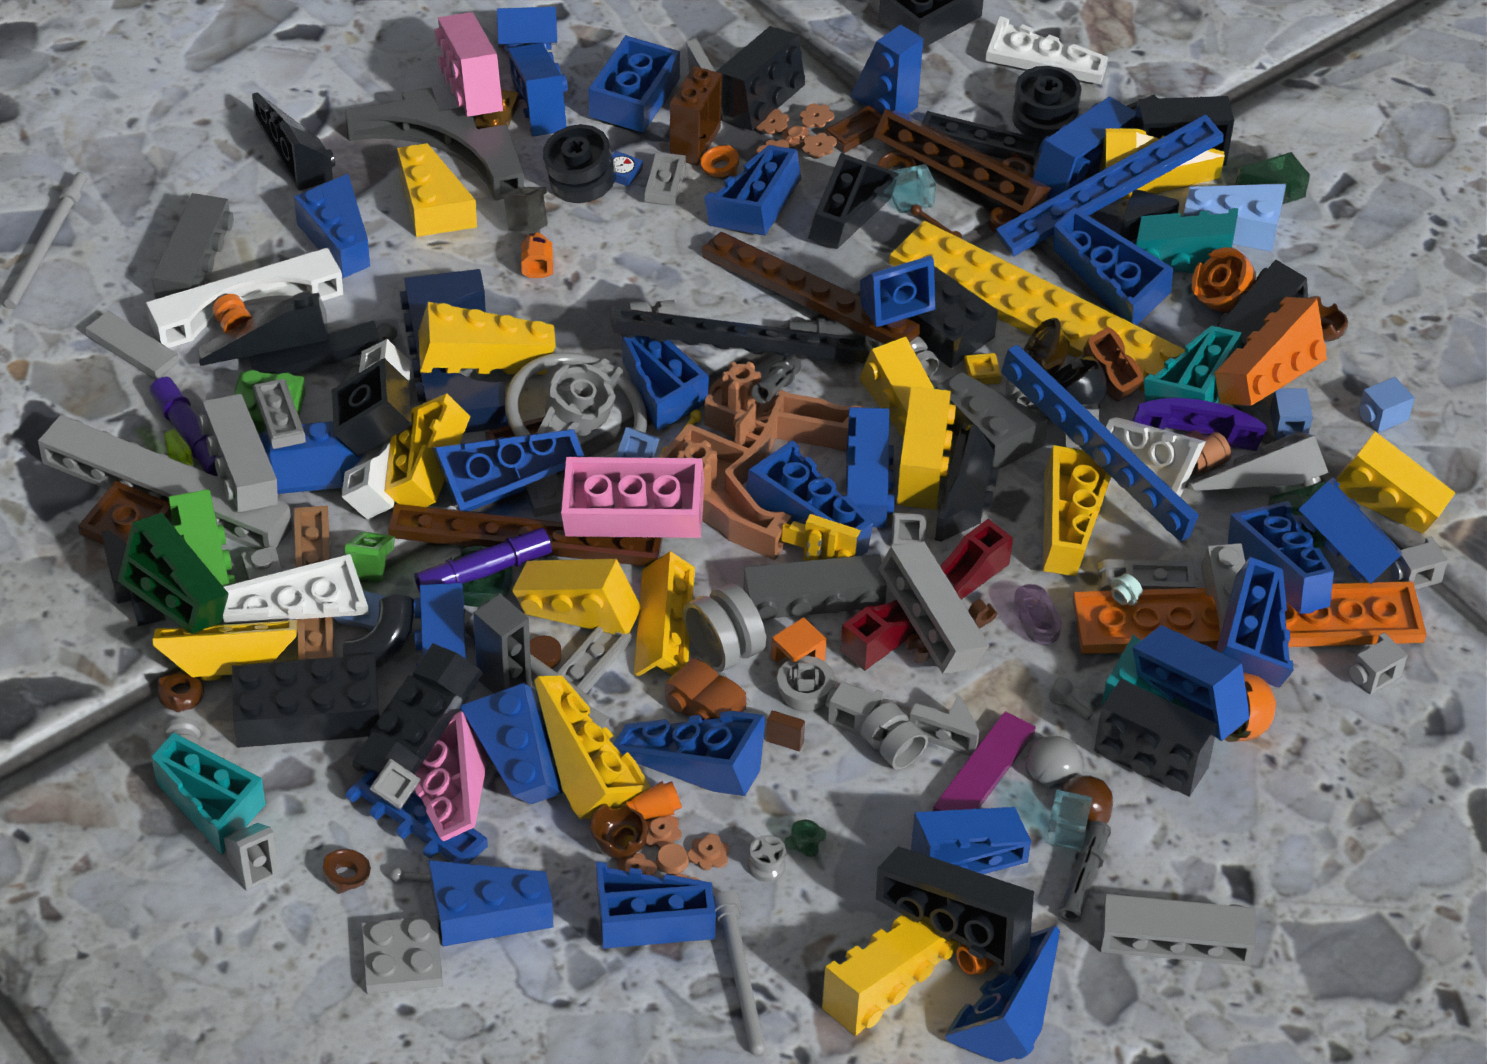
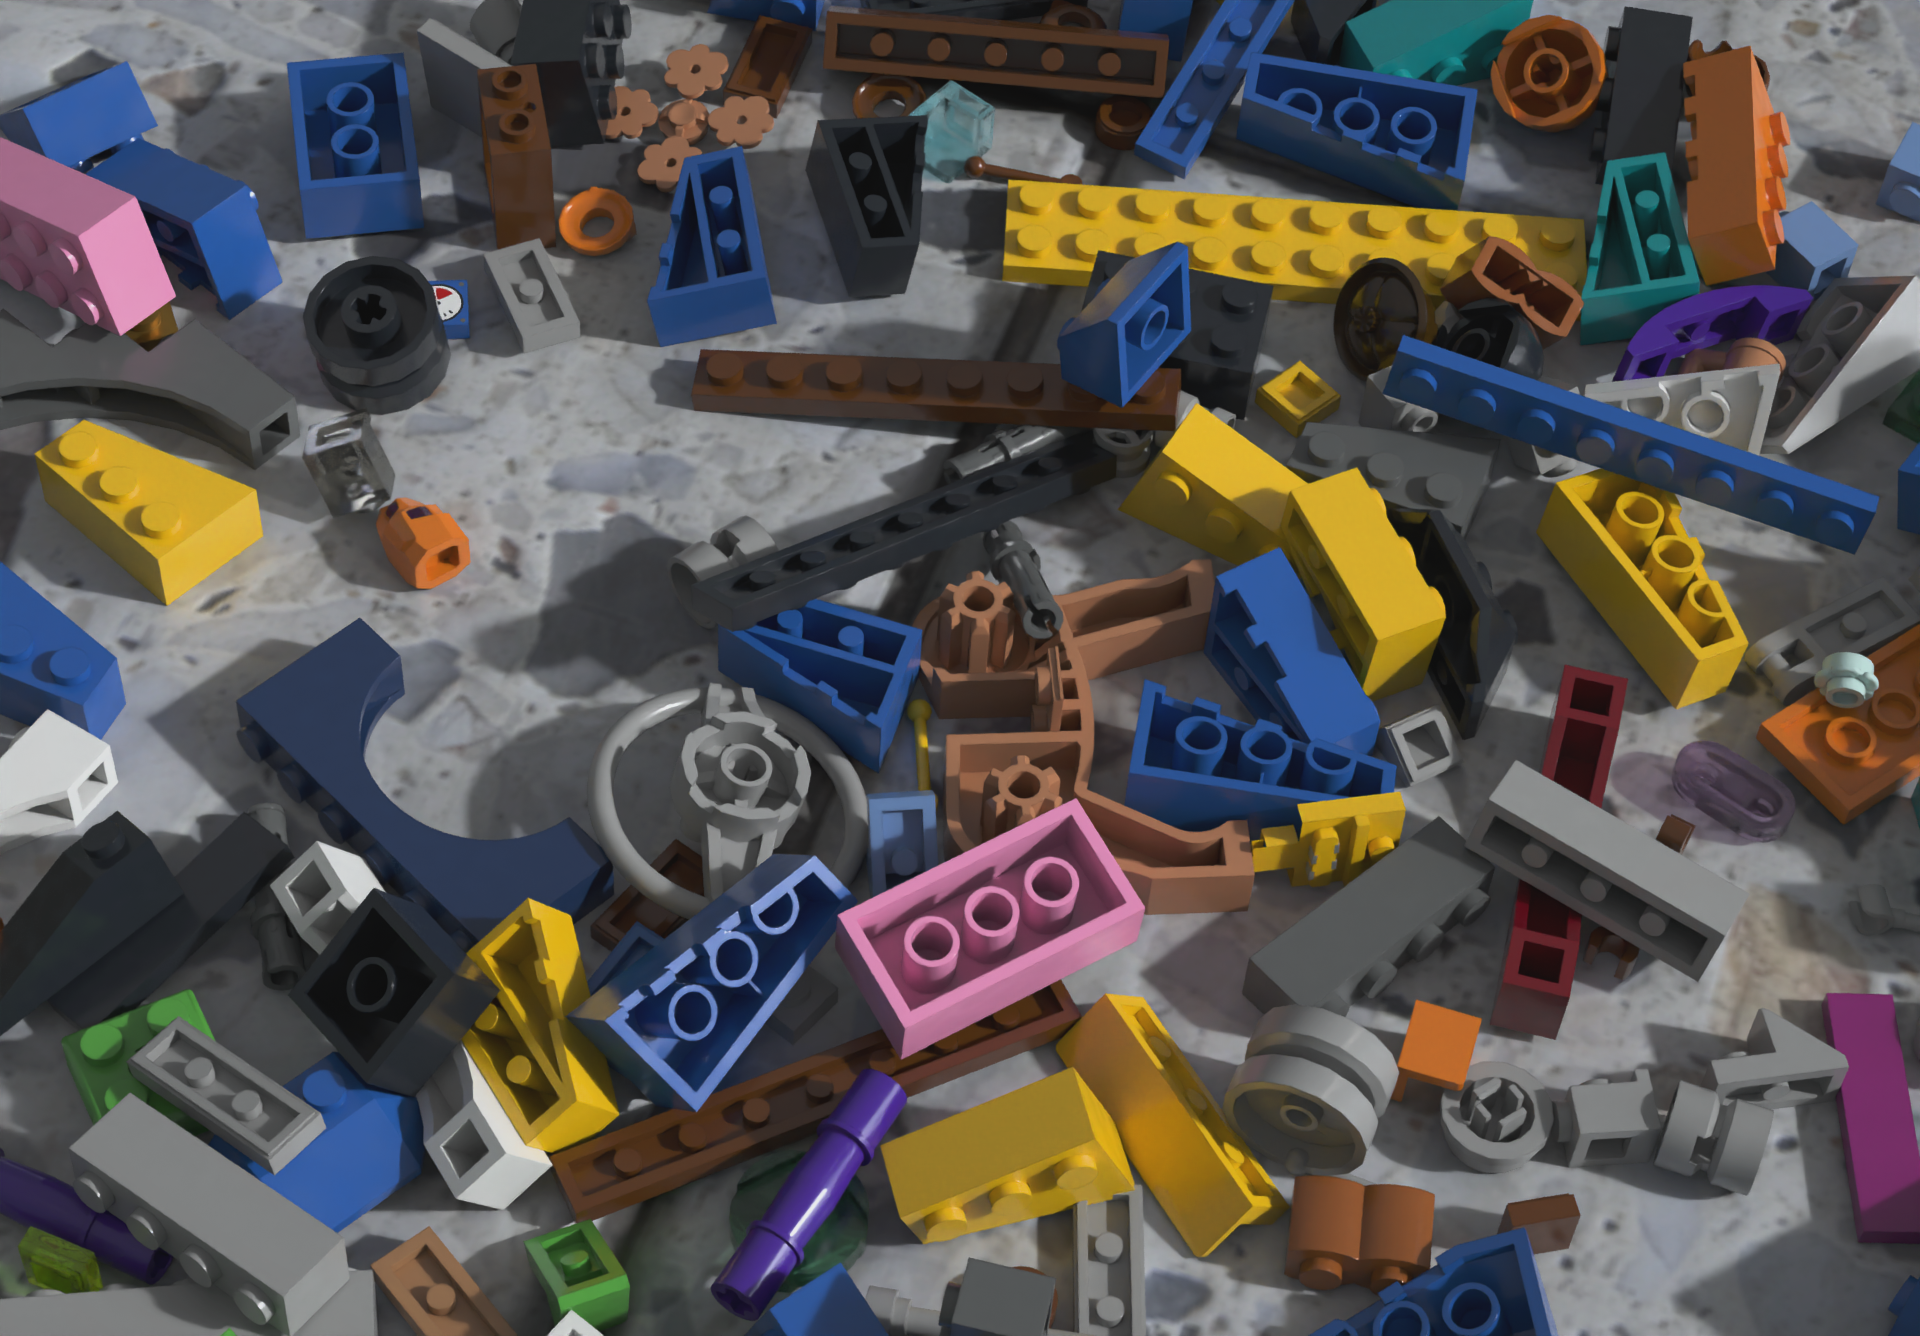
camera: 35 degrees left, 5 degrees up
(480, 340) = (479, 760): yellow wedge -> none

